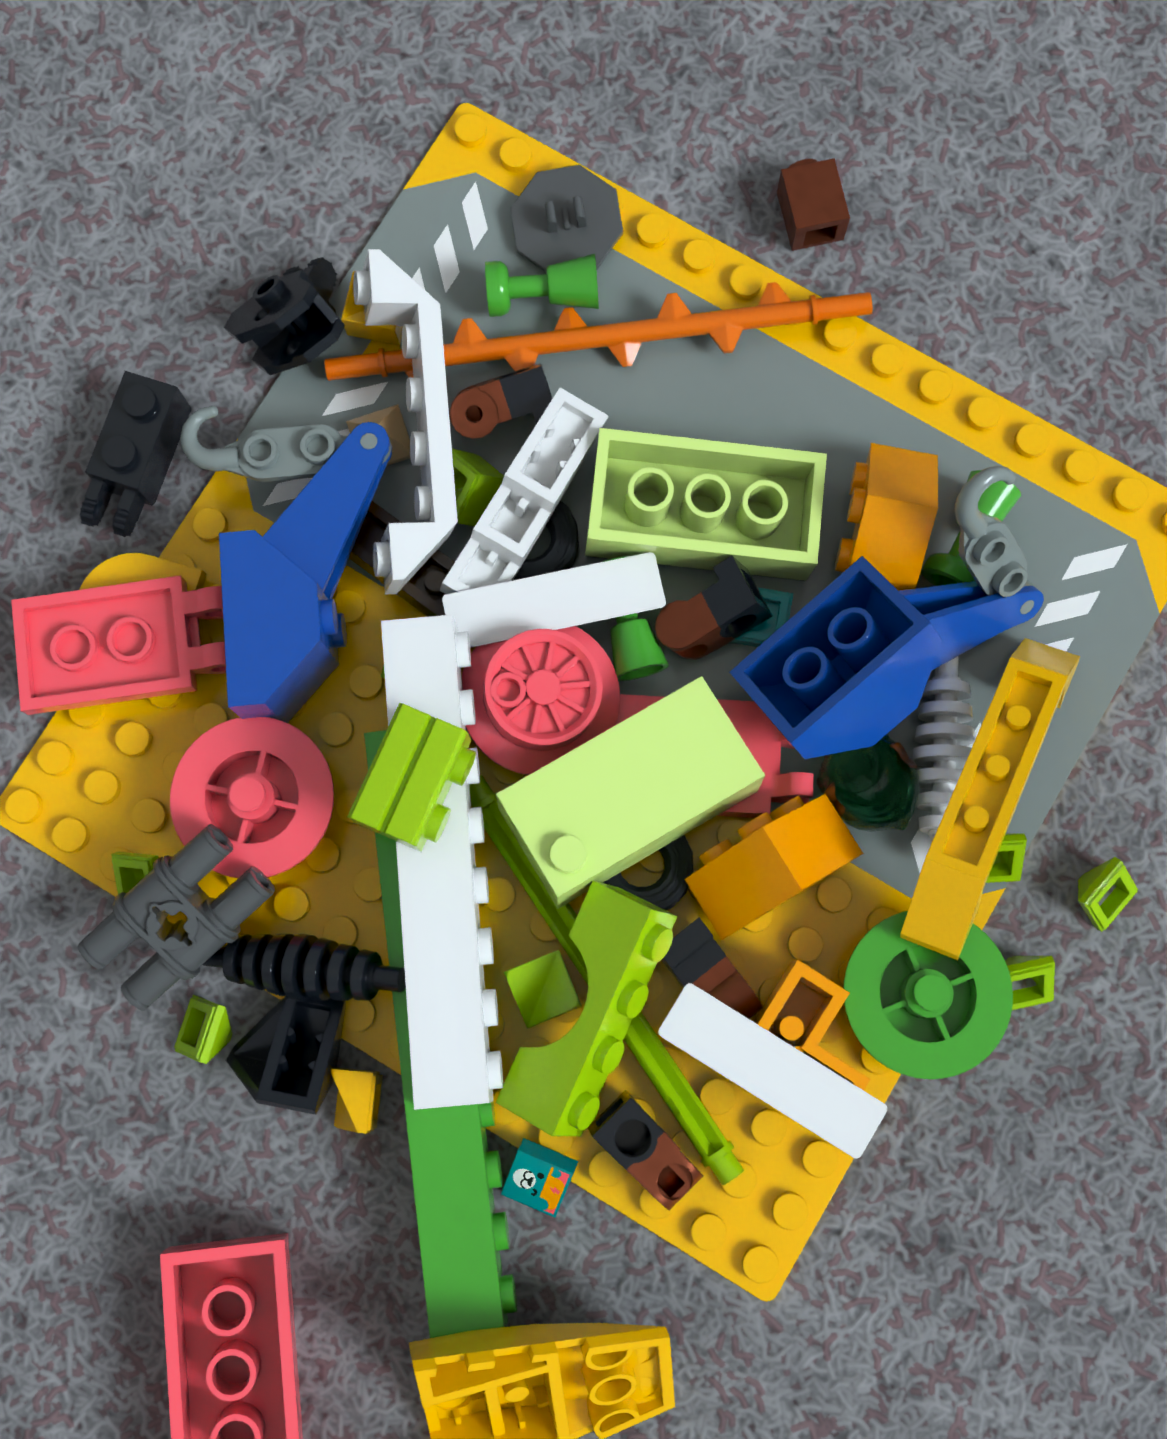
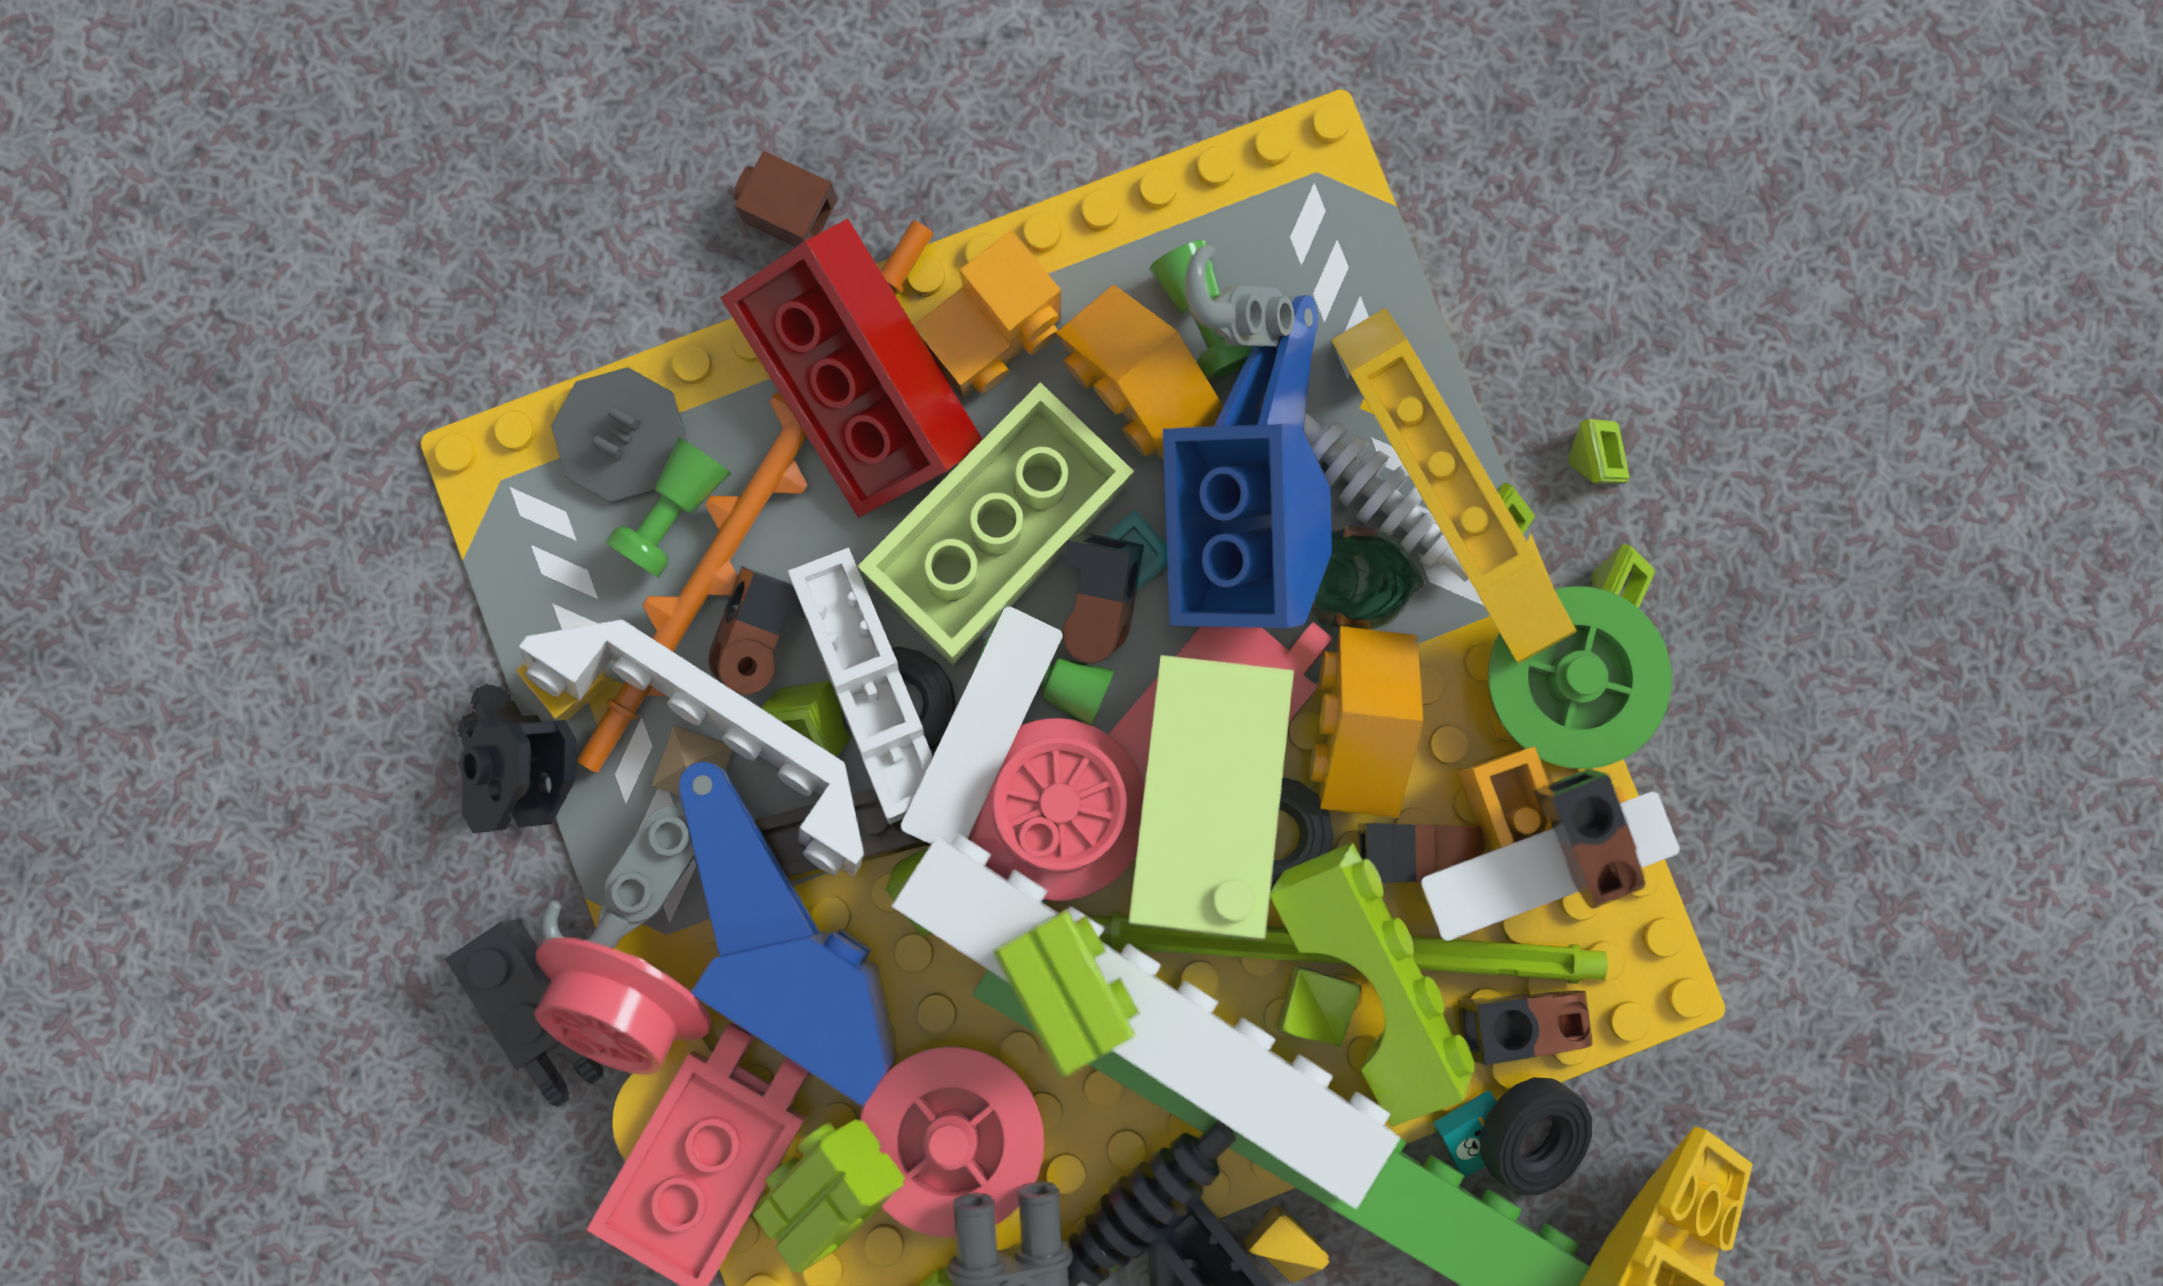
camera: 60 degrees left, 5 degrees up
(153, 738) = (826, 1193): none -> lime brick
(174, 497) = (614, 1006): none -> coral wheel
(563, 1251) = (1511, 1120): none -> black tyre
(734, 323) = (852, 368): none -> red slope
(816, 1081) = (1593, 836): none -> leg
(846, 393) = (996, 315): none -> light orange brick

